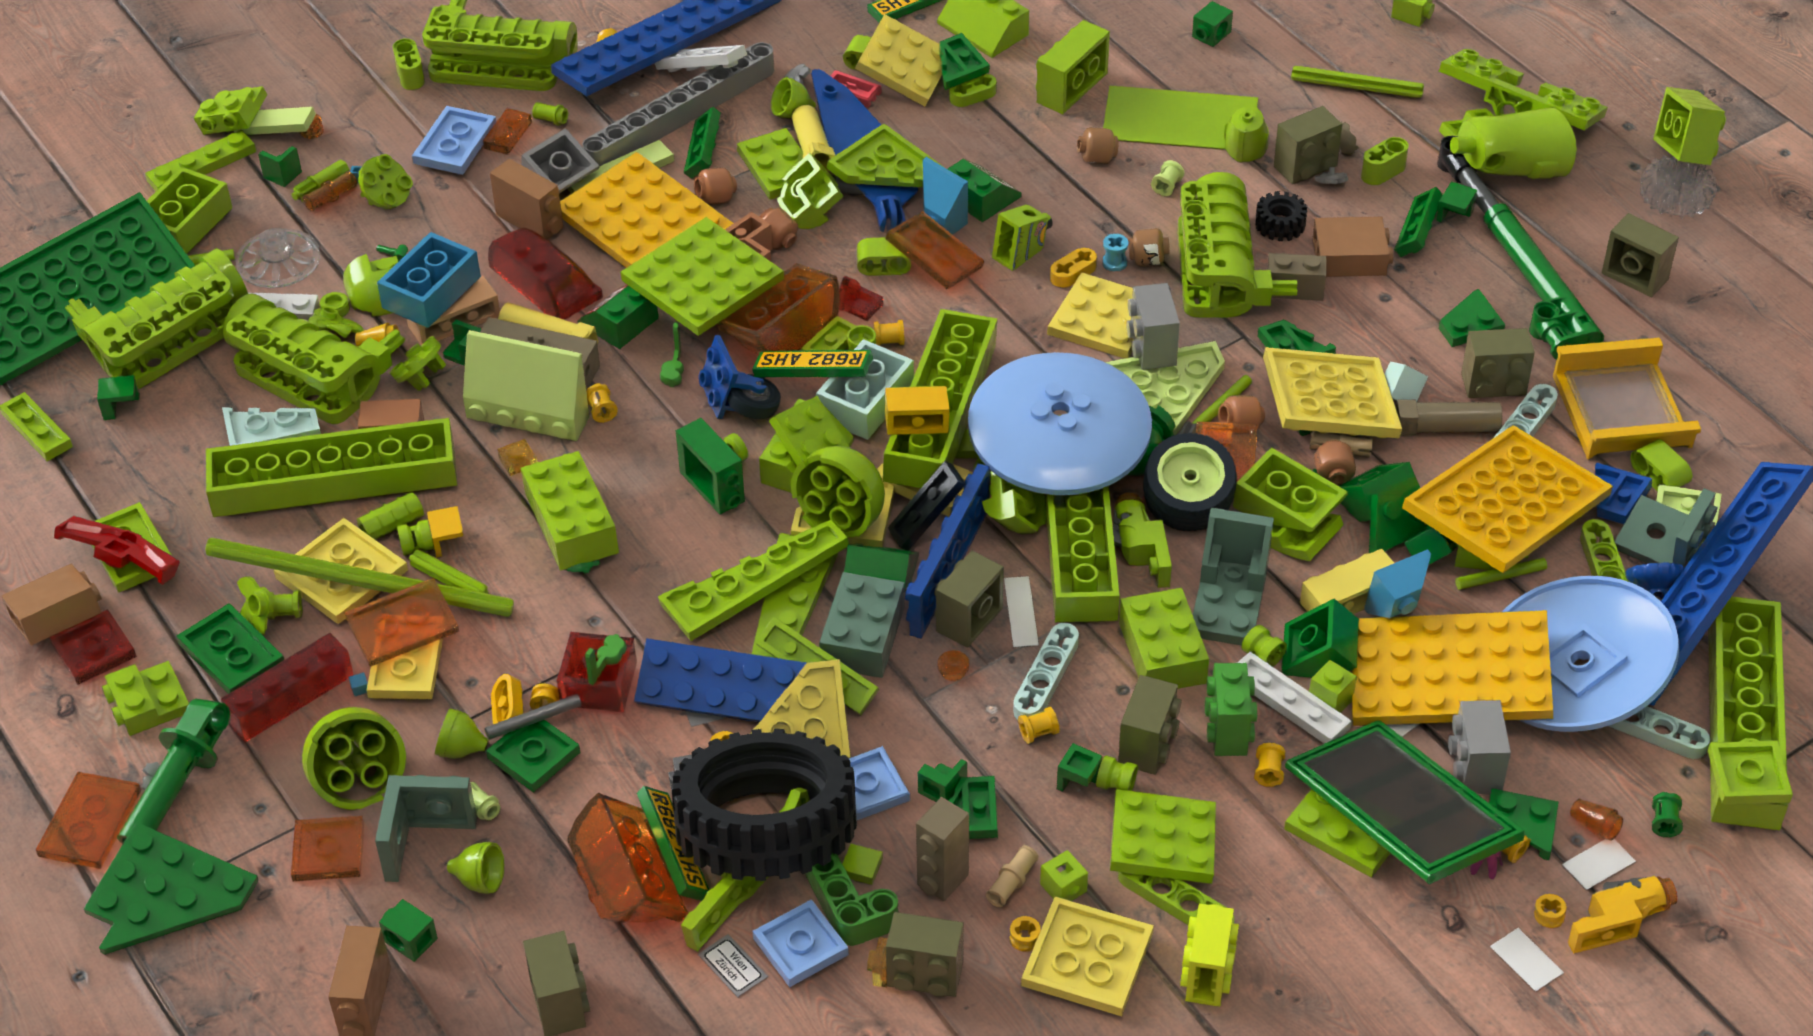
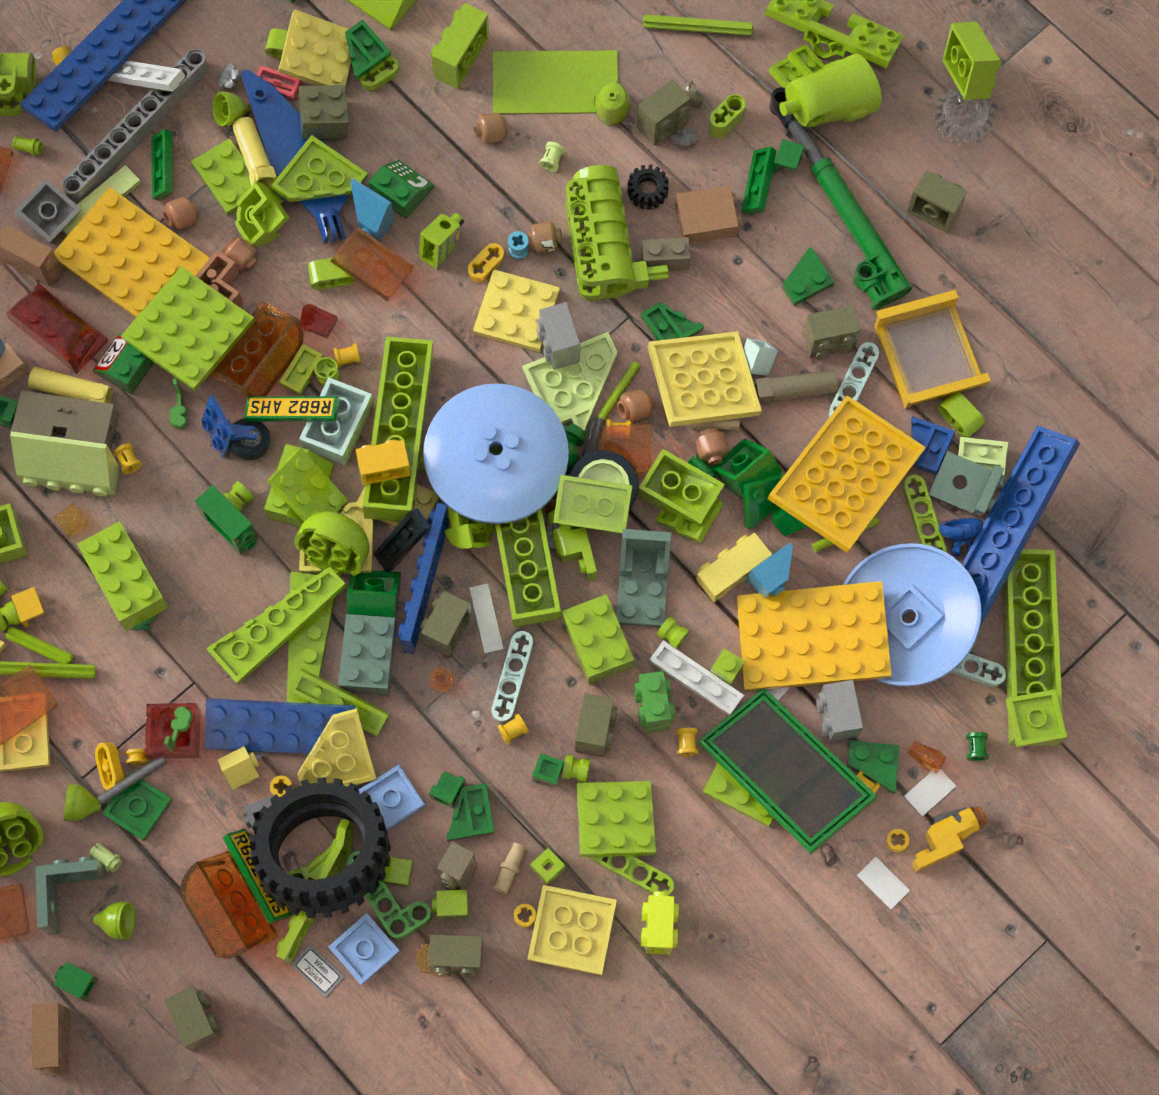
camera: 10 degrees left, 25 degrees up
(674, 722) = (239, 767): none -> light yellow brick
(902, 108) = (323, 112): none -> olive brick
(927, 899) = (451, 904): none -> lime brick
(1174, 485) = (592, 504): none -> lime plate
(1320, 636) = (715, 623): green slope -> none

